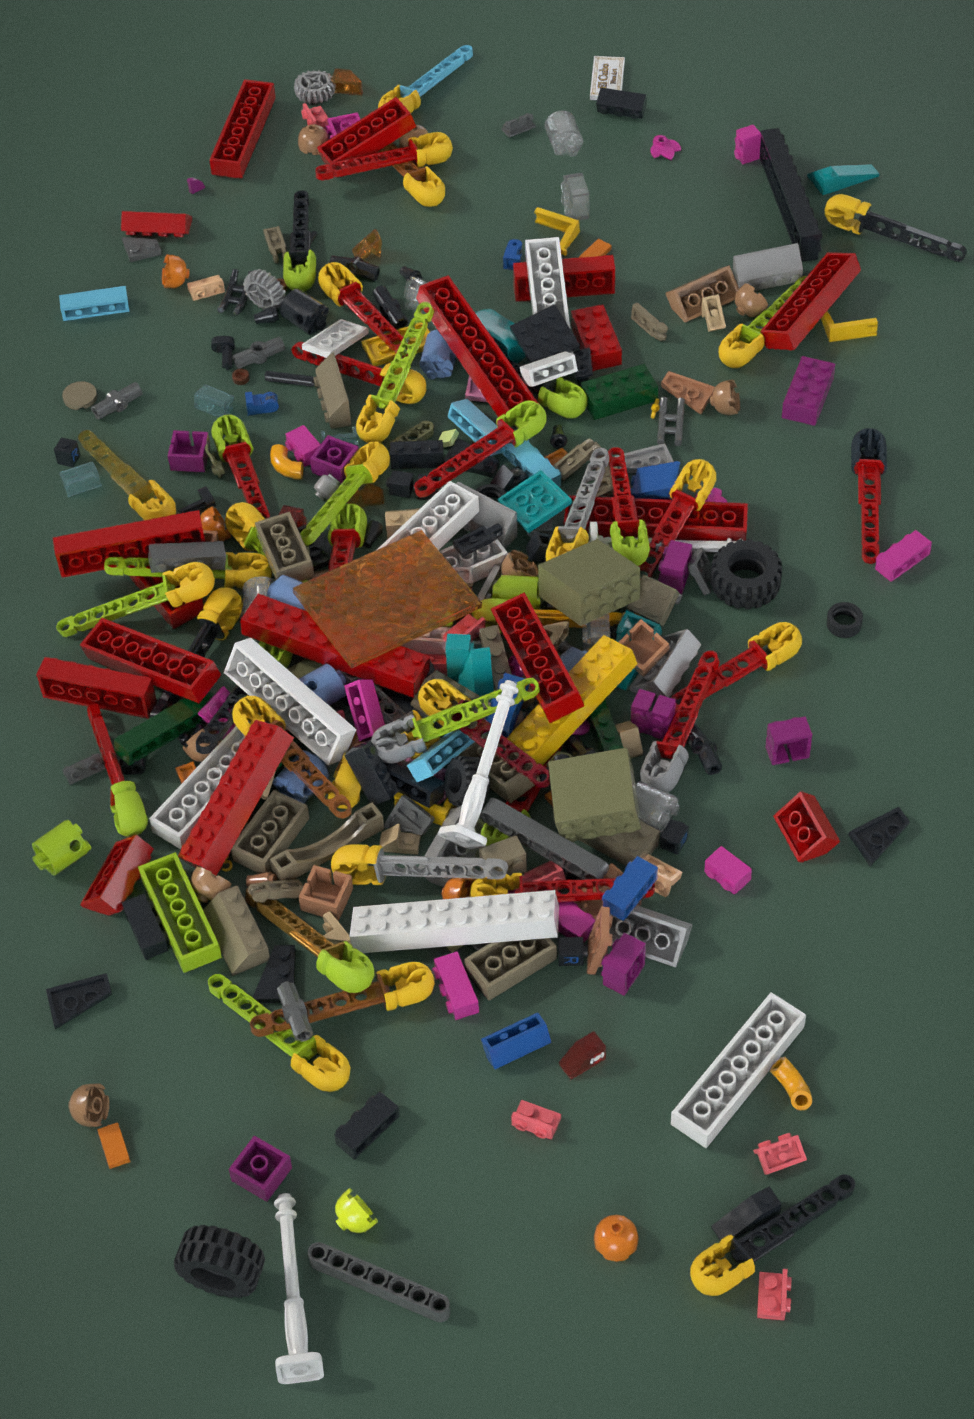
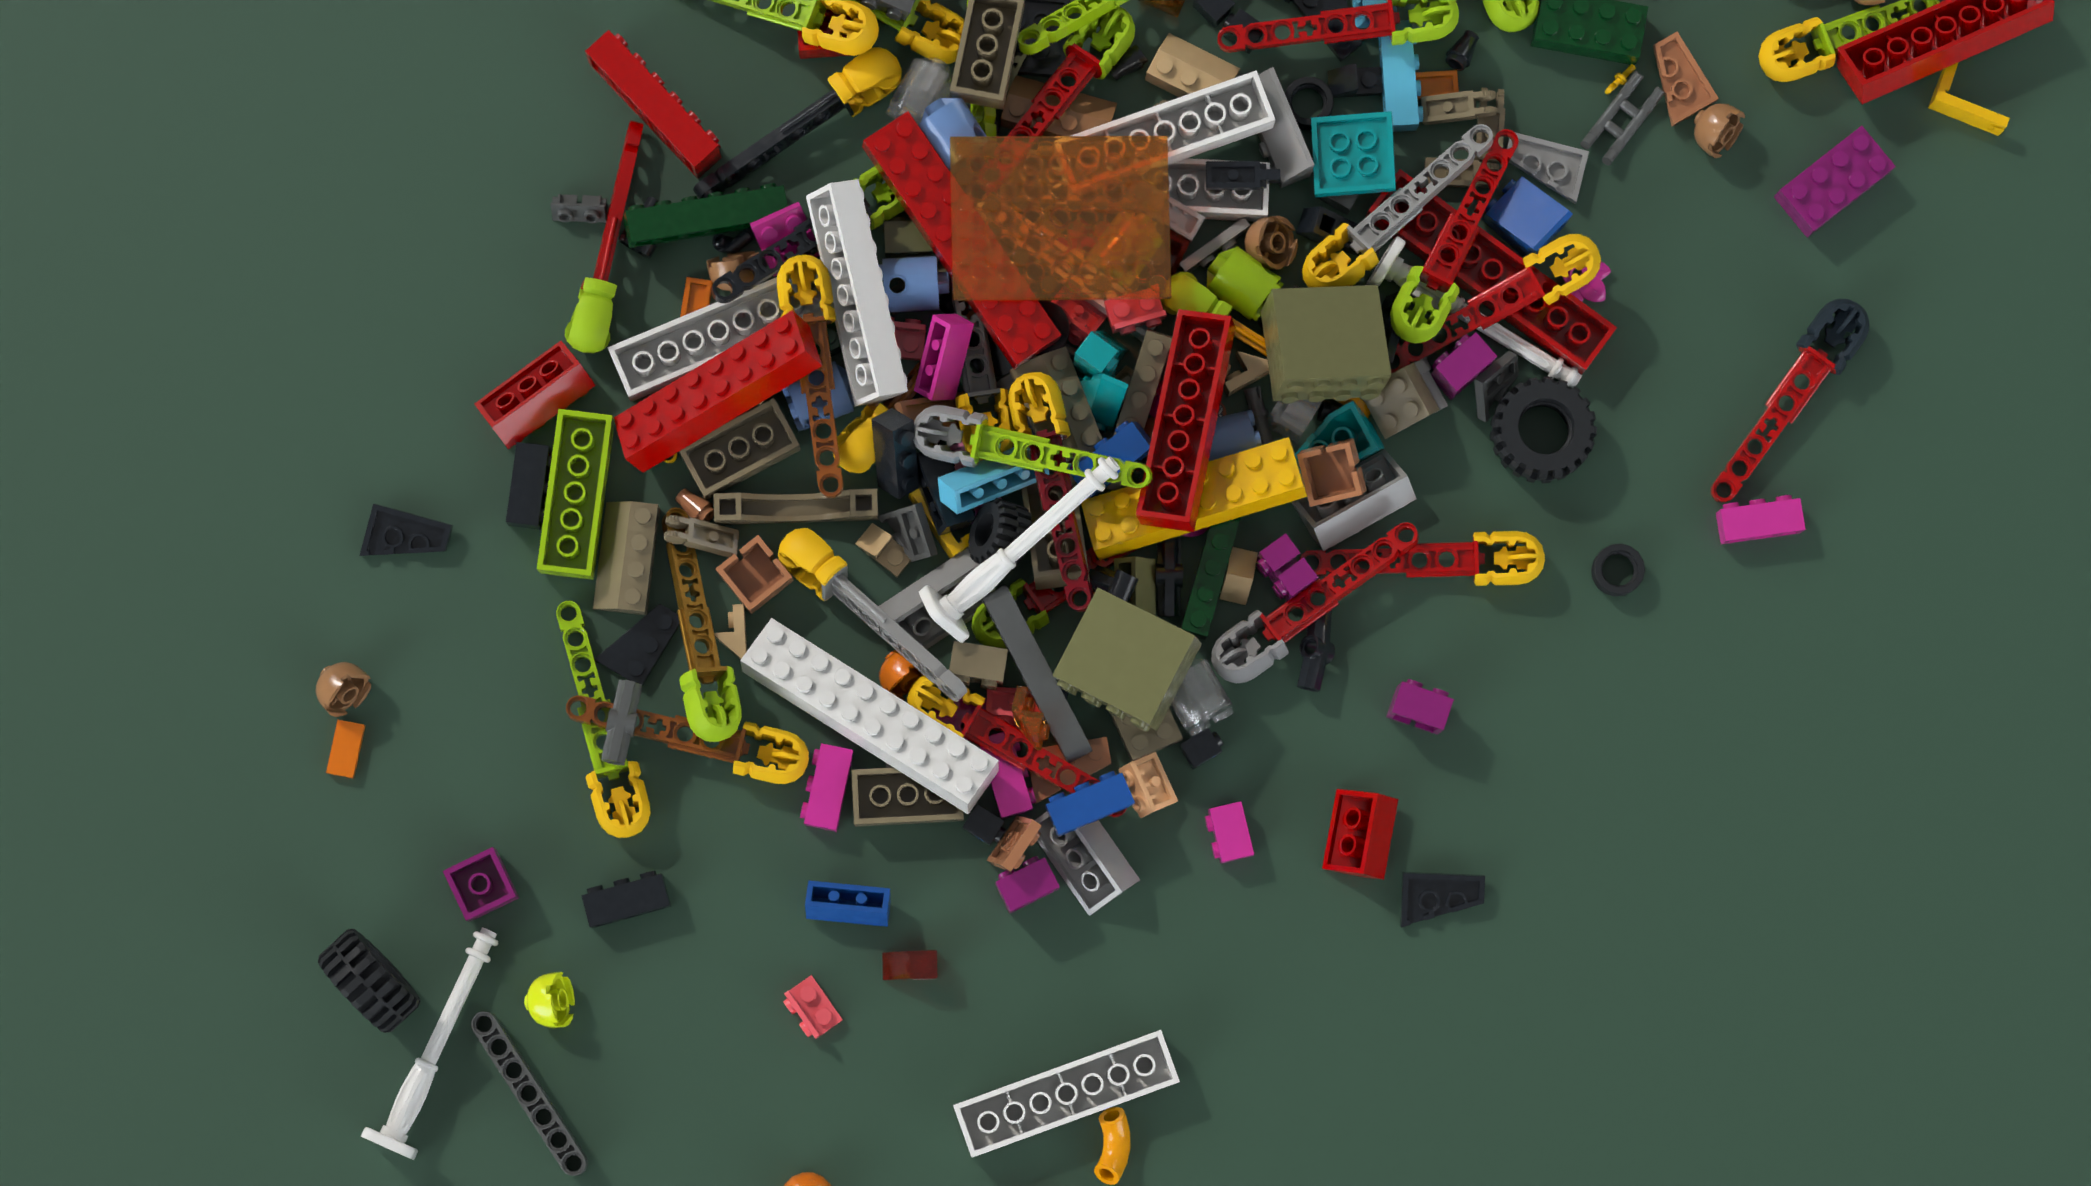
camera: 20 degrees right, 30 degrees up
(60, 847) = (487, 318): lime cylinder -> none
(147, 656) = (734, 110): red brick -> none
(207, 884) = (628, 481): medium nougat cylinder -> none
(558, 868) = (1029, 722): none -> clear orange slope

